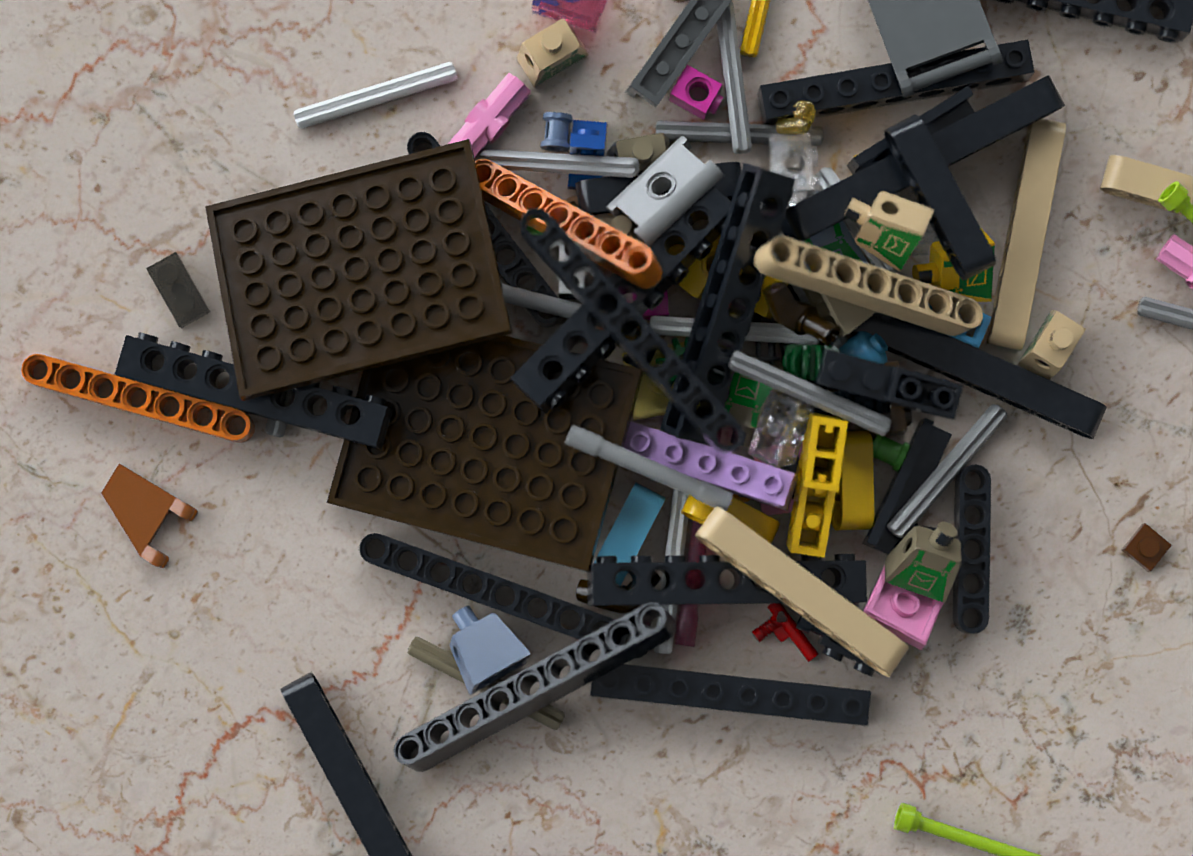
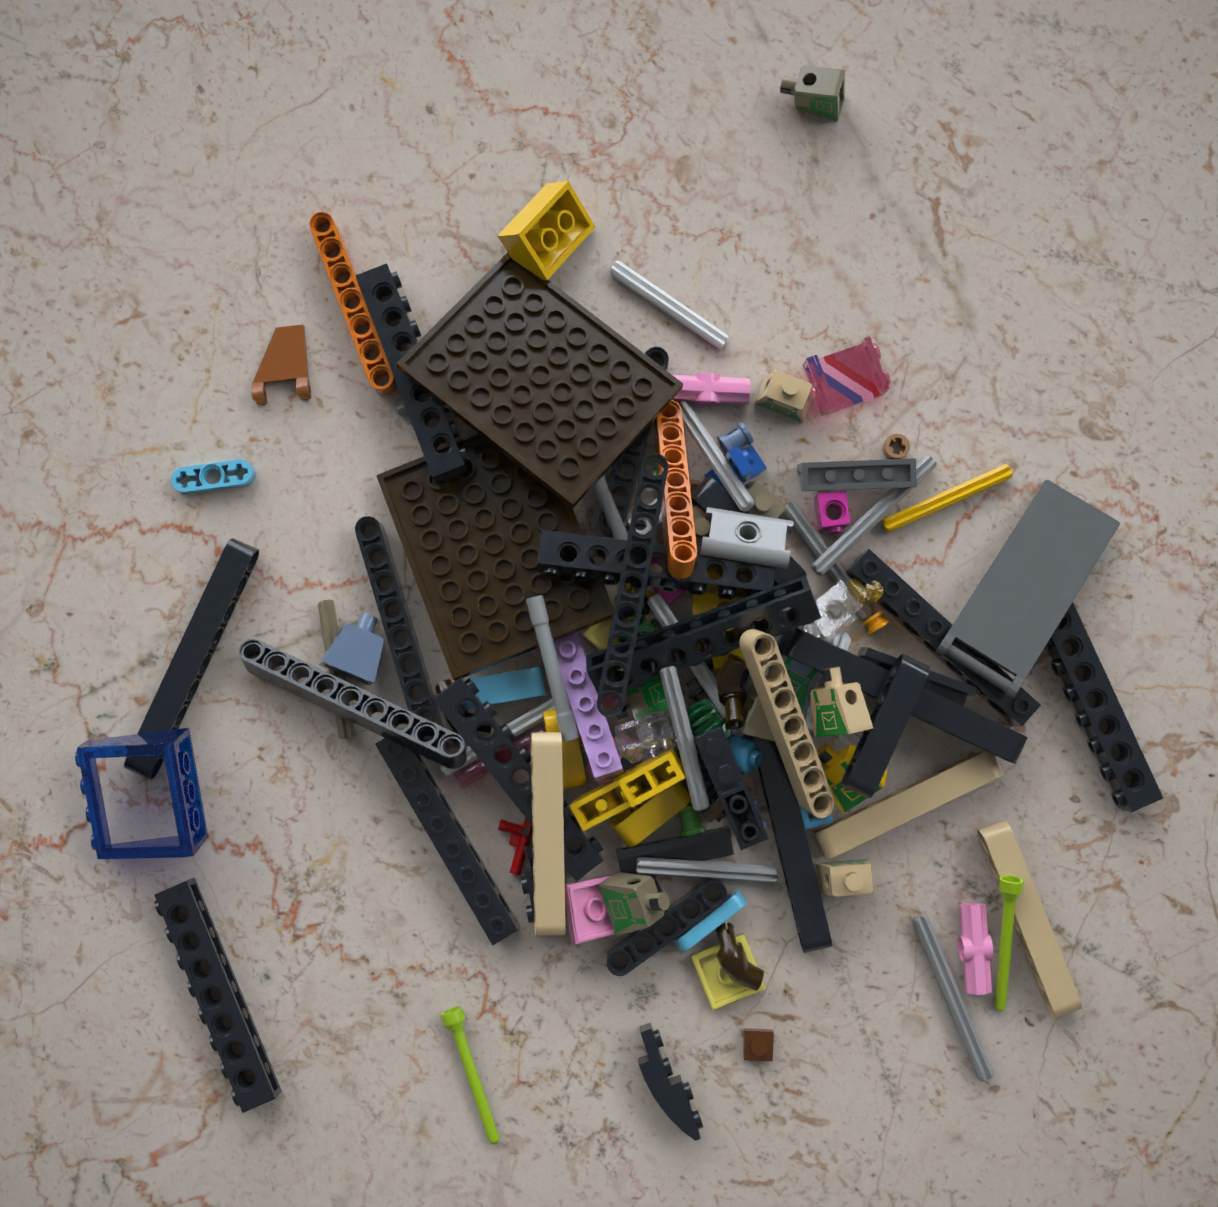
camera: 60 degrees right, 0 degrees up
(178, 290) = (444, 276): clear smoke plate -> none
(209, 637) = (194, 486): none -> medium azure beam
(214, 154) = (547, 229): none -> yellow slope
(832, 133) = (875, 622): none -> light orange bush
(999, 529) = (688, 939): none -> medium azure beam
(1051, 508) = (734, 961): none -> dark brown arm
(1057, 524) = (716, 983): none -> light yellow tile
(1130, 662) = (671, 1092): none -> black slope

